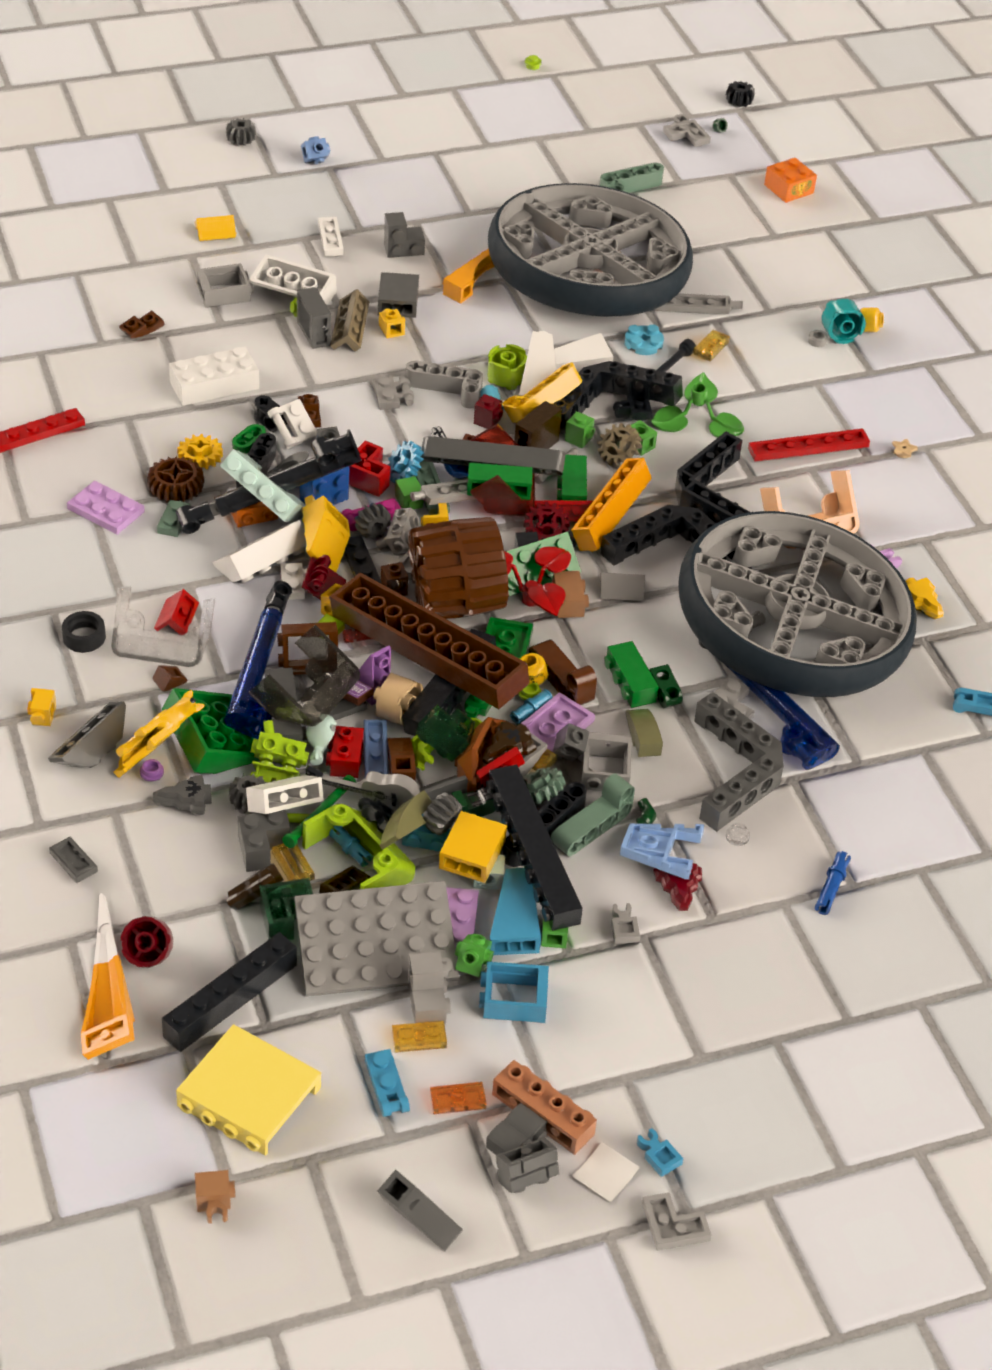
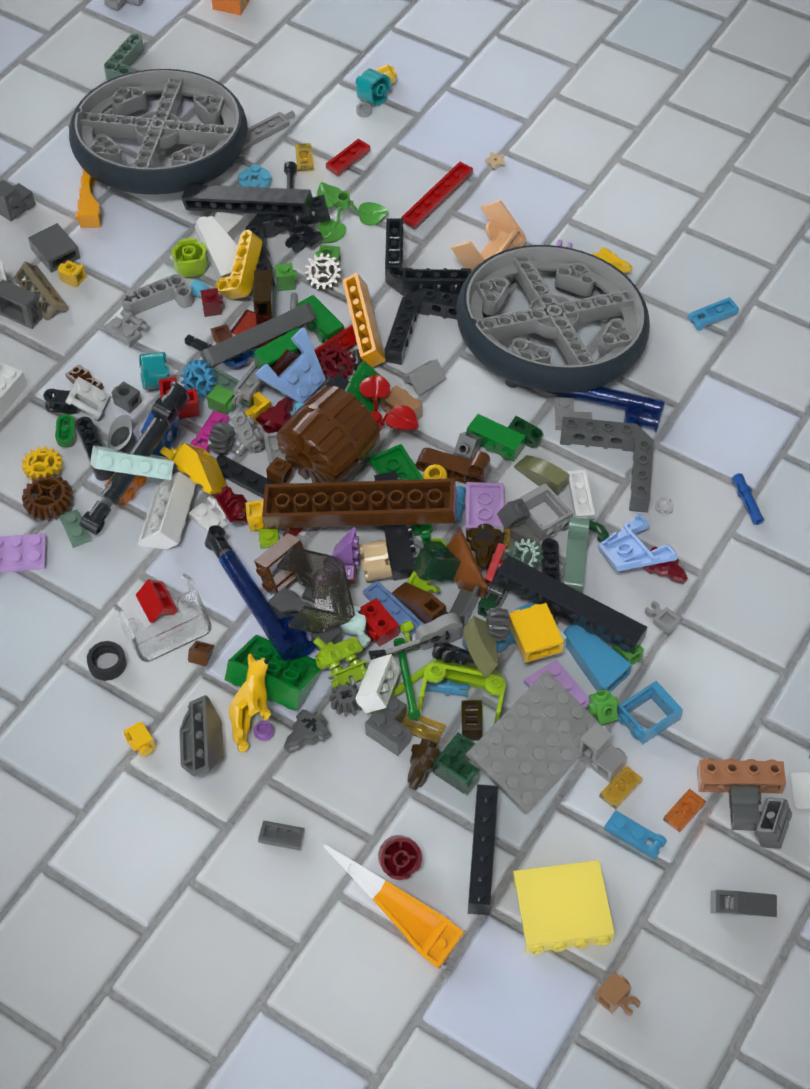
camera: 35 degrees left, 10 degrees up
(364, 769) = (405, 628): none -> lime hand
(374, 429) = (153, 369): none -> teal brick
(505, 508) = (301, 376): none -> light blue wing
(596, 658) = (467, 445): none -> dark grey brick
(606, 343) = (248, 200): none -> black brick
(662, 772) = (581, 494): none -> white plate
(755, 367) = (348, 157): none -> red plate

